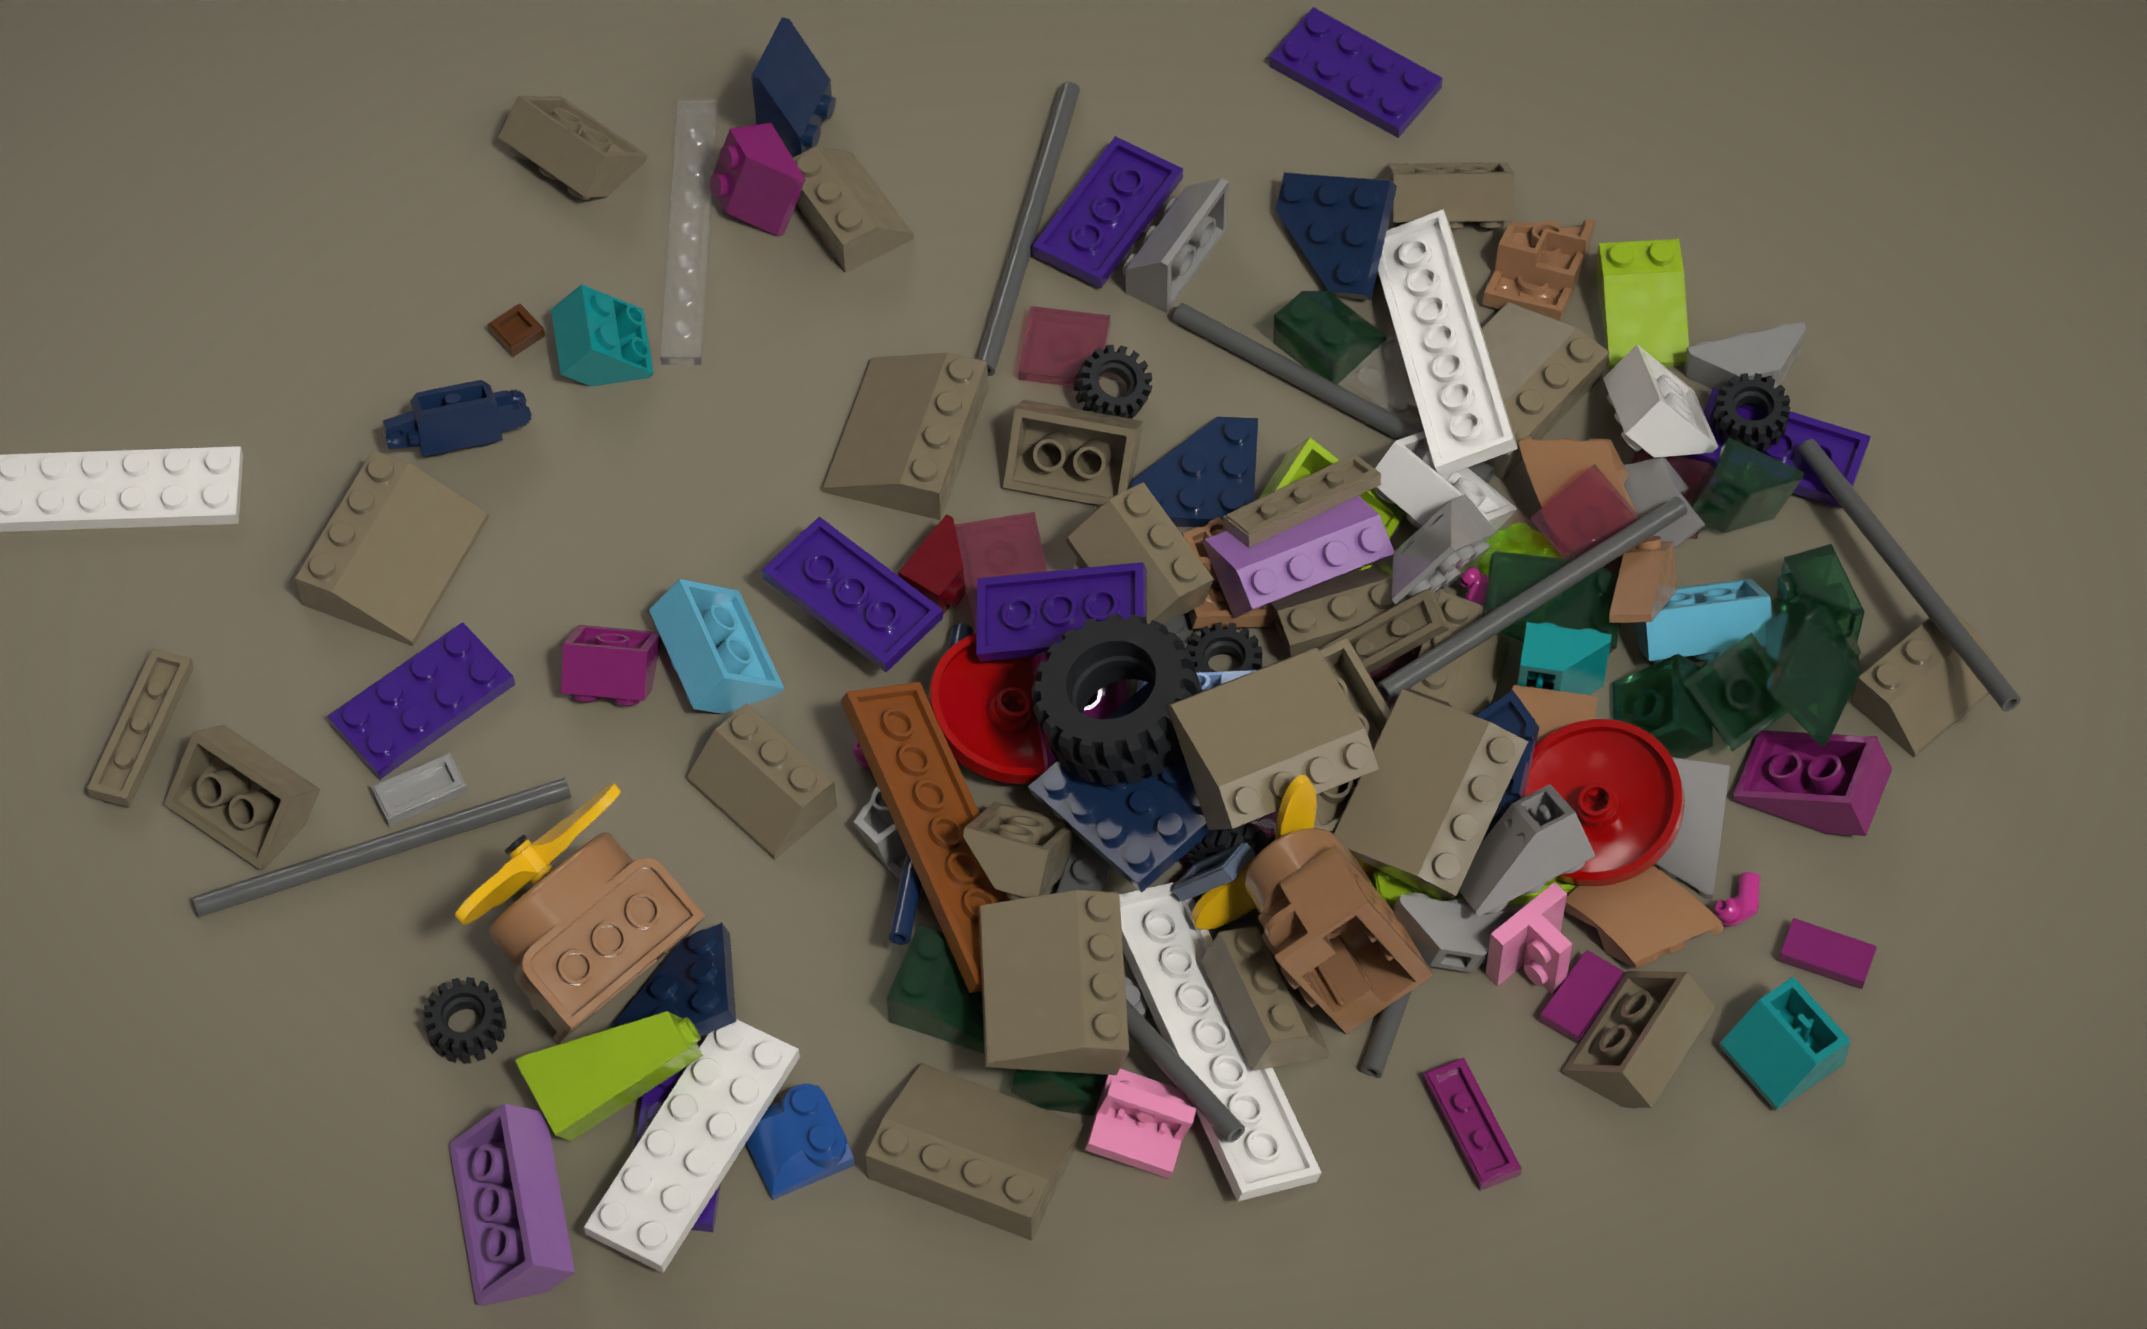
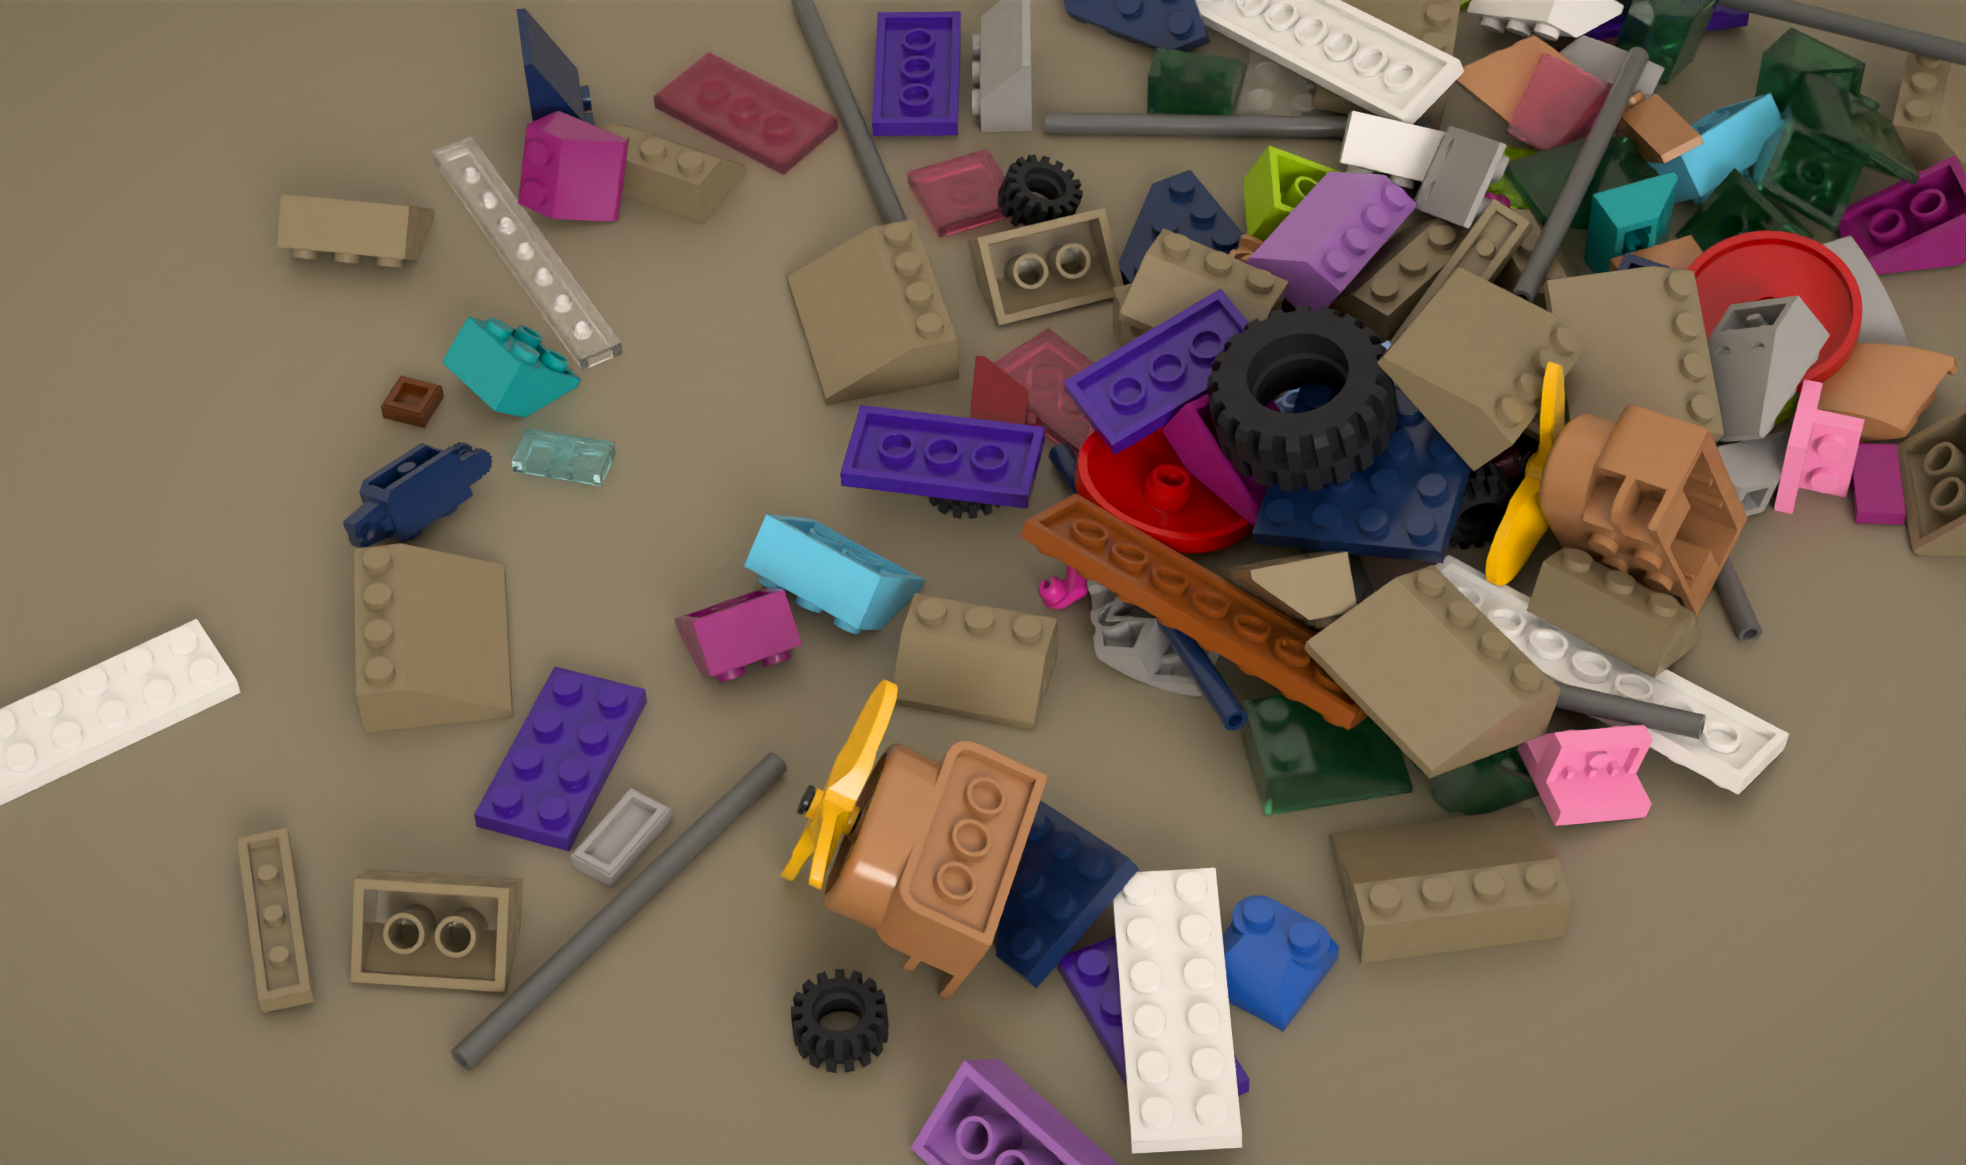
camera: 30 degrees left, 10 degrees down
(592, 439) = (563, 457): none -> clear light blue plate
(605, 1071) = (1037, 983): lime slope -> none
(949, 181) = (746, 113): none -> clear pink tile
(1213, 871) = (1486, 521): sand blue tile -> none
(1301, 500) = (1306, 194): dark tan tile -> none
(1472, 1124) = (1876, 632): magenta tile -> none
(1744, 905) = (1940, 337): dark pink arm -> none

